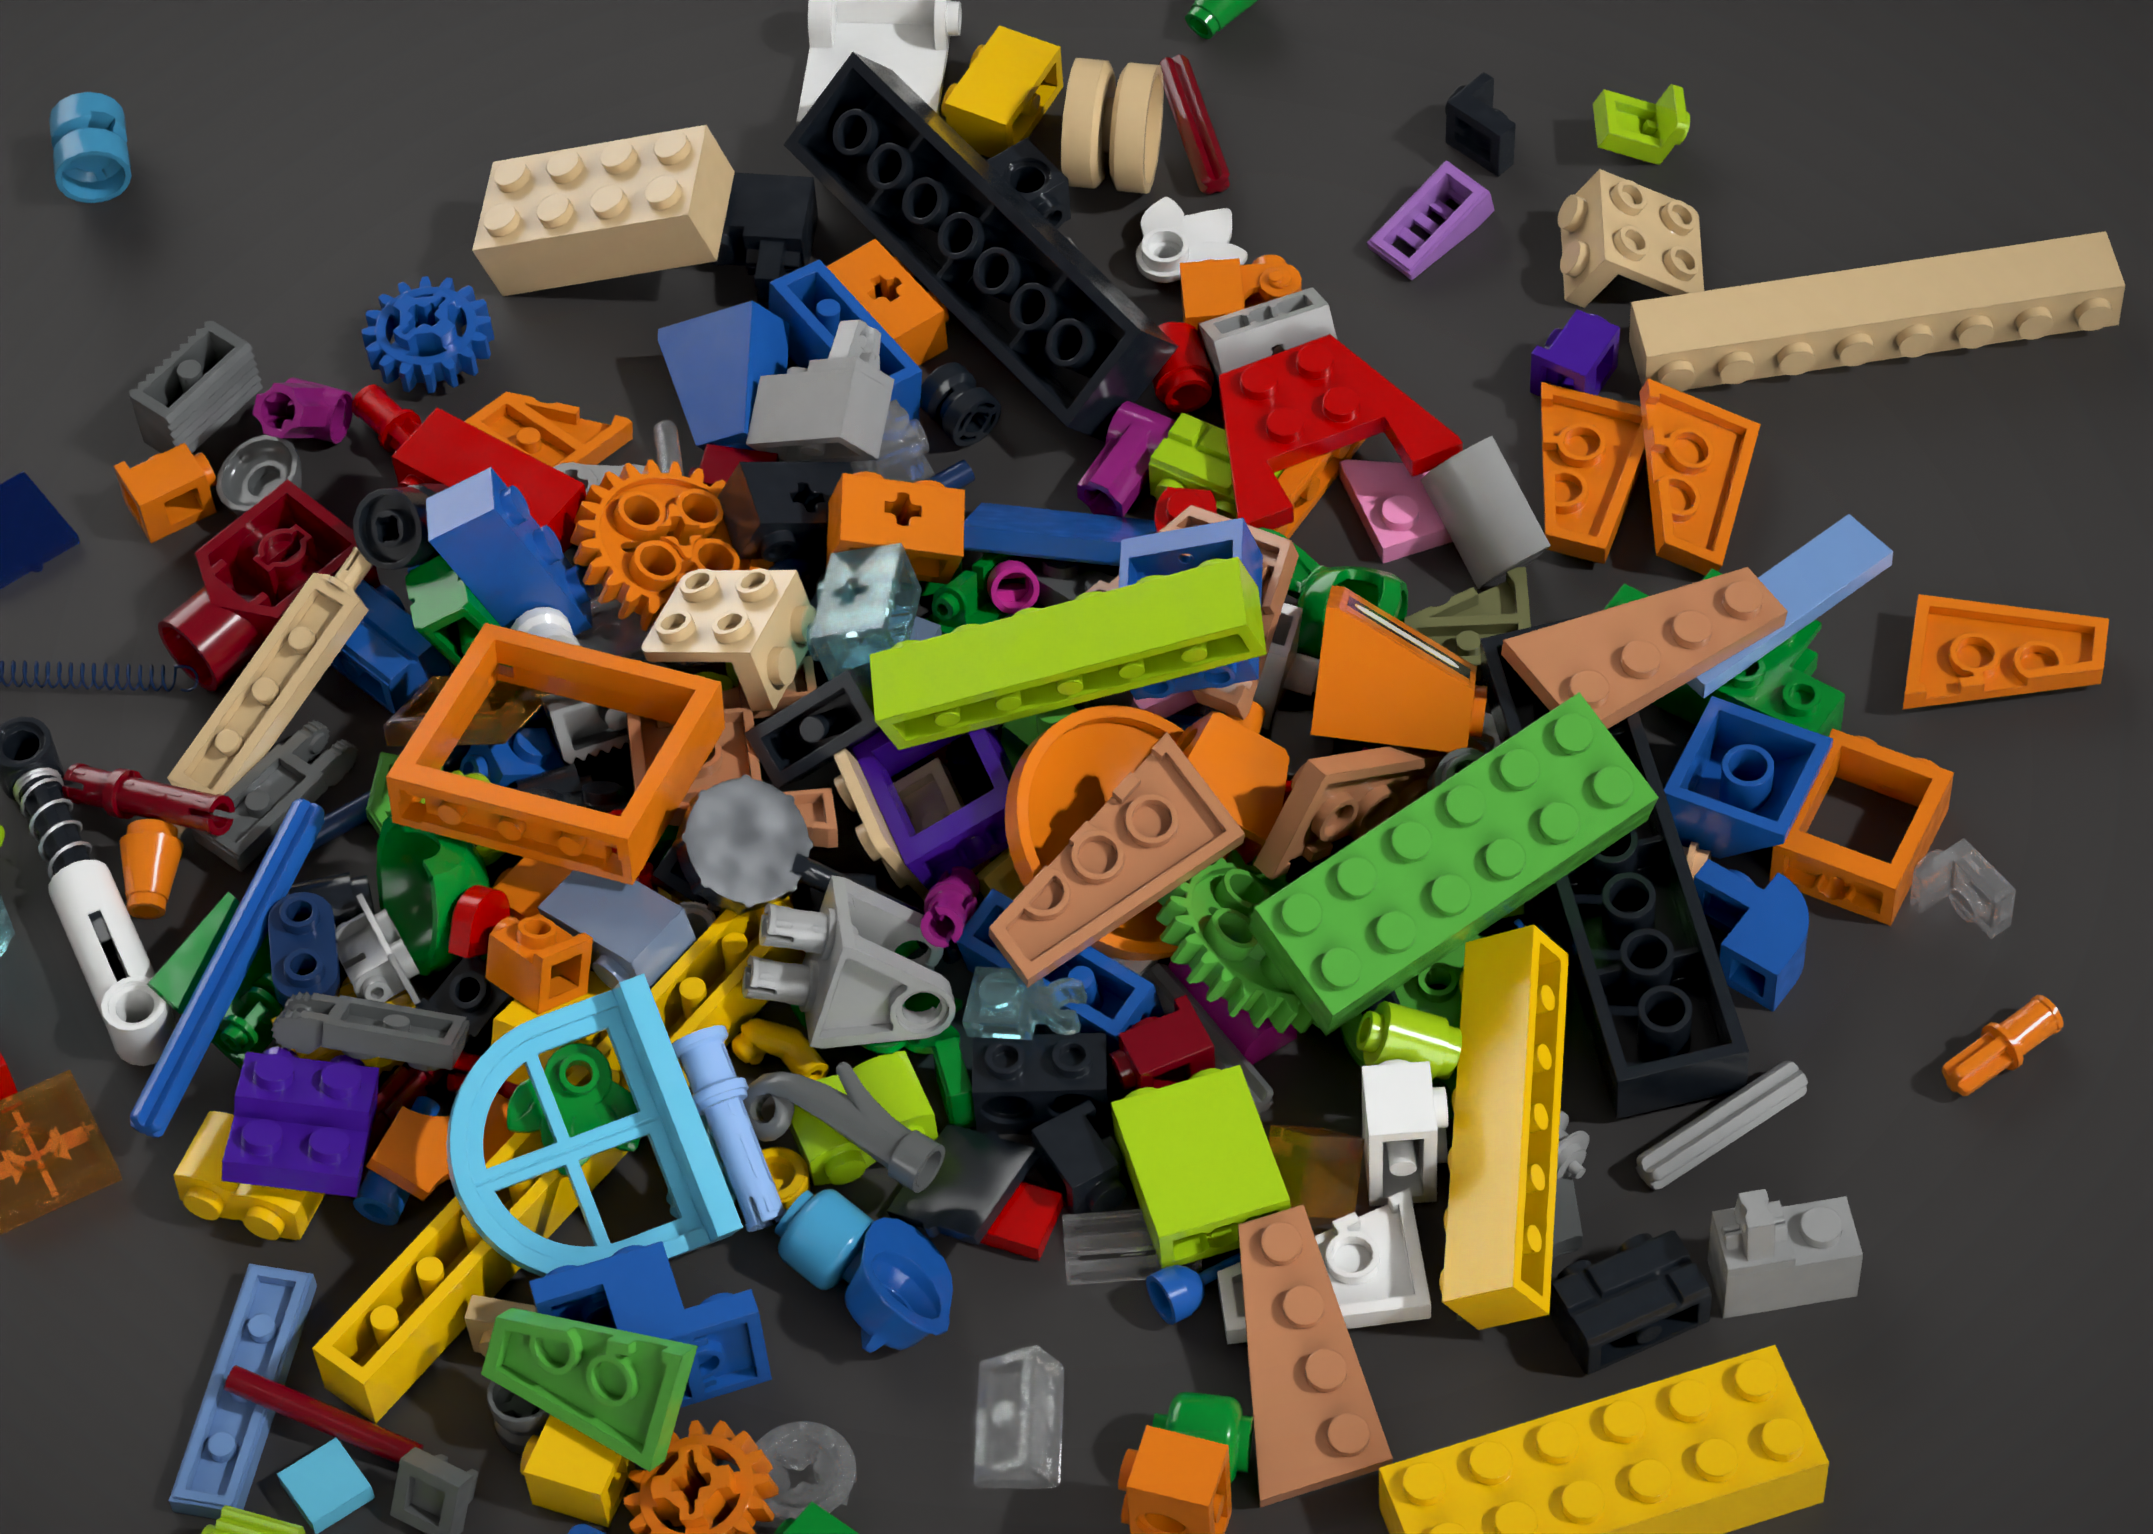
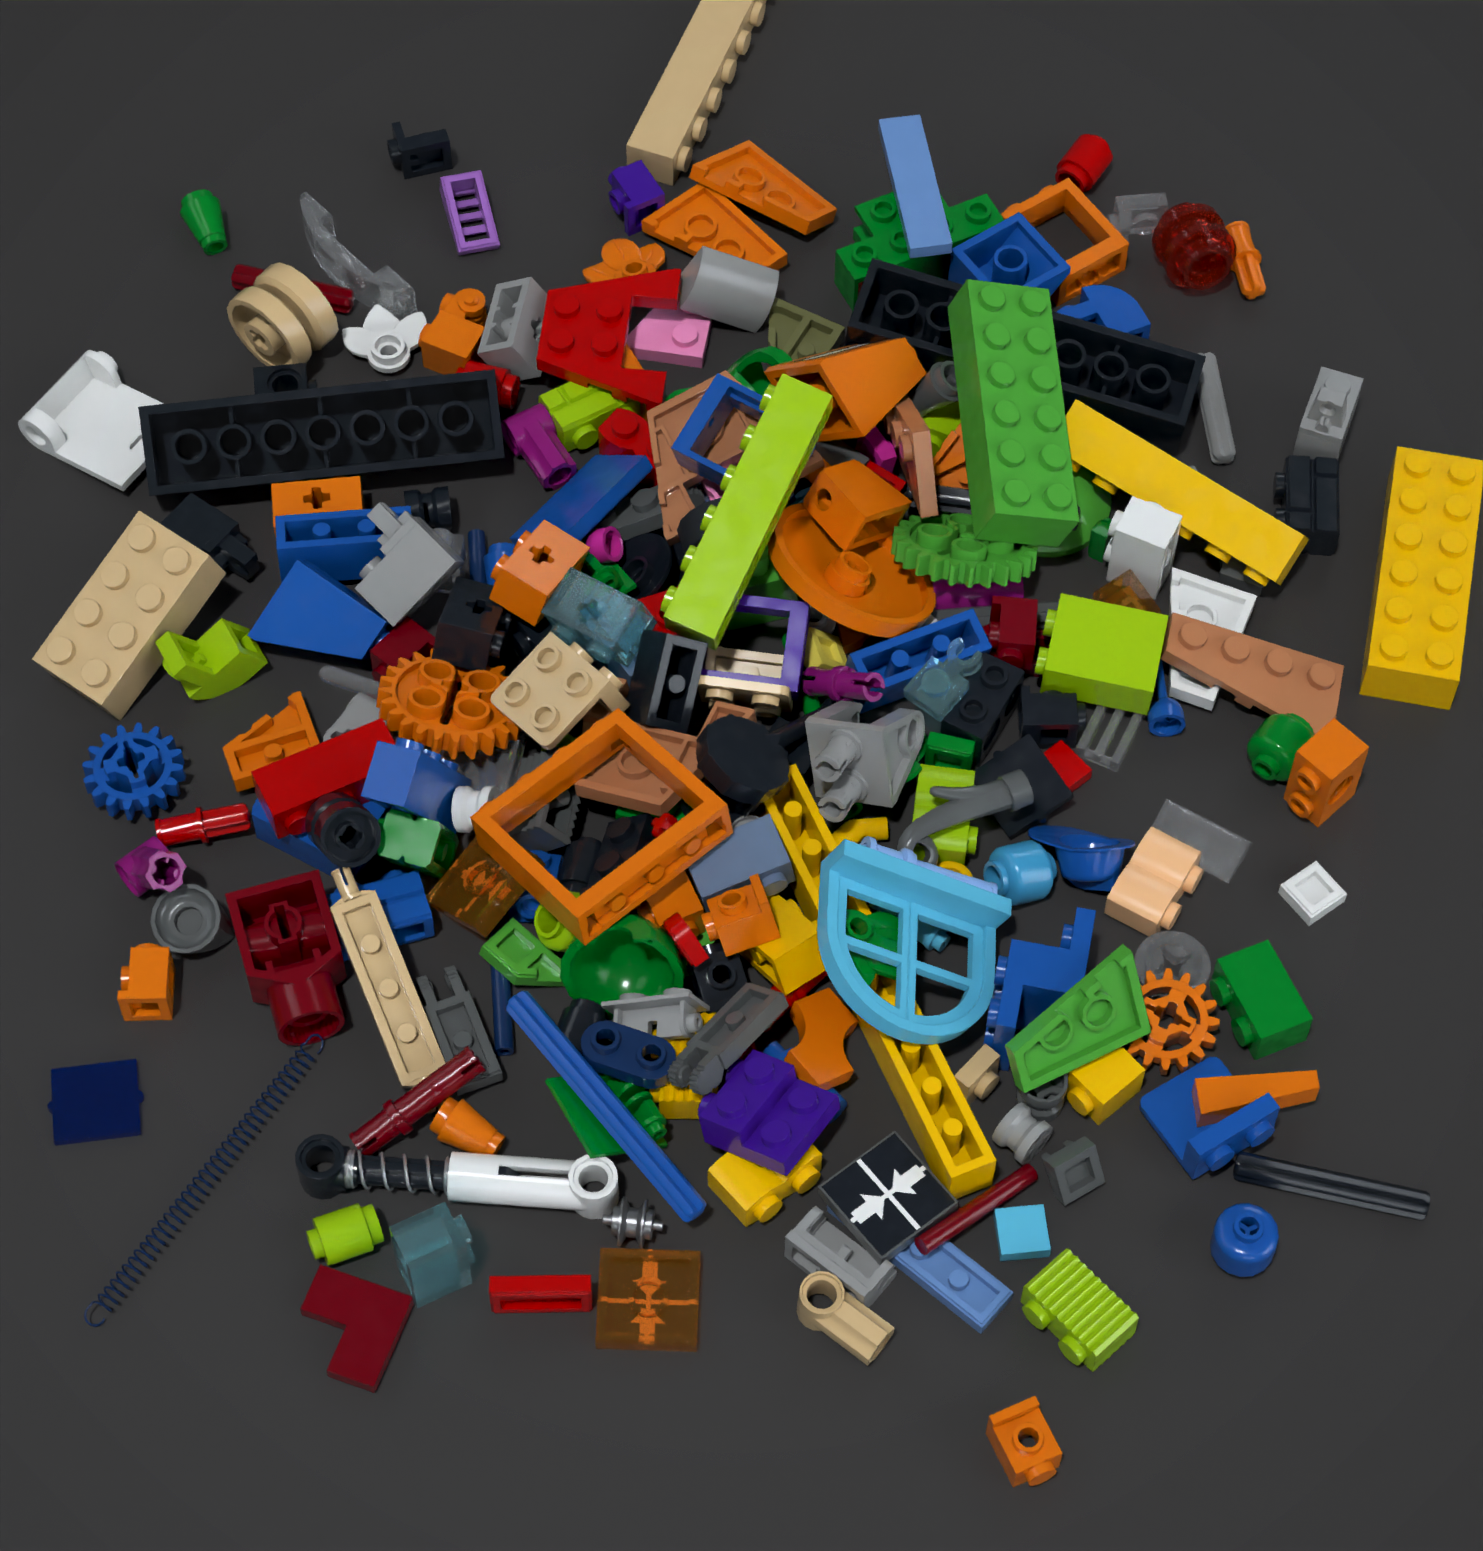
camera: 65 degrees left, 5 degrees up
(100, 1348) = (846, 1320): none -> tan piece
(112, 1080) = (632, 1222): none -> flat silver wheel
(179, 1309) = (822, 1247): none -> light grey hinge
(196, 389) = (83, 925): dark grey brick -> none
(275, 1311) = (887, 1197): none -> black tile
(452, 1416) = (1022, 1133): none -> light grey wheel
(602, 320) = (213, 663): none -> lime brick
(905, 1392) = (1154, 882): none -> light nougat brick
(1004, 91) = (189, 363): yellow brick -> none
(1132, 853) = (901, 567): nougat wing -> none
(1280, 102) = (369, 288): none -> clear slope
(1411, 1036) = (1098, 505): lime brick -> none
(1474, 406) = (624, 259): none -> orange plate
(1628, 232) = (562, 132): tan bracket -> none
(1641, 127) = (484, 77): lime bracket -> none
(1646, 646) = (917, 258): nougat wing -> none
(1960, 968) = (1194, 246): none -> clear red piece
(1998, 651) = (983, 123): orange wing -> none
(2014, 788) = (1085, 161): none -> red brick

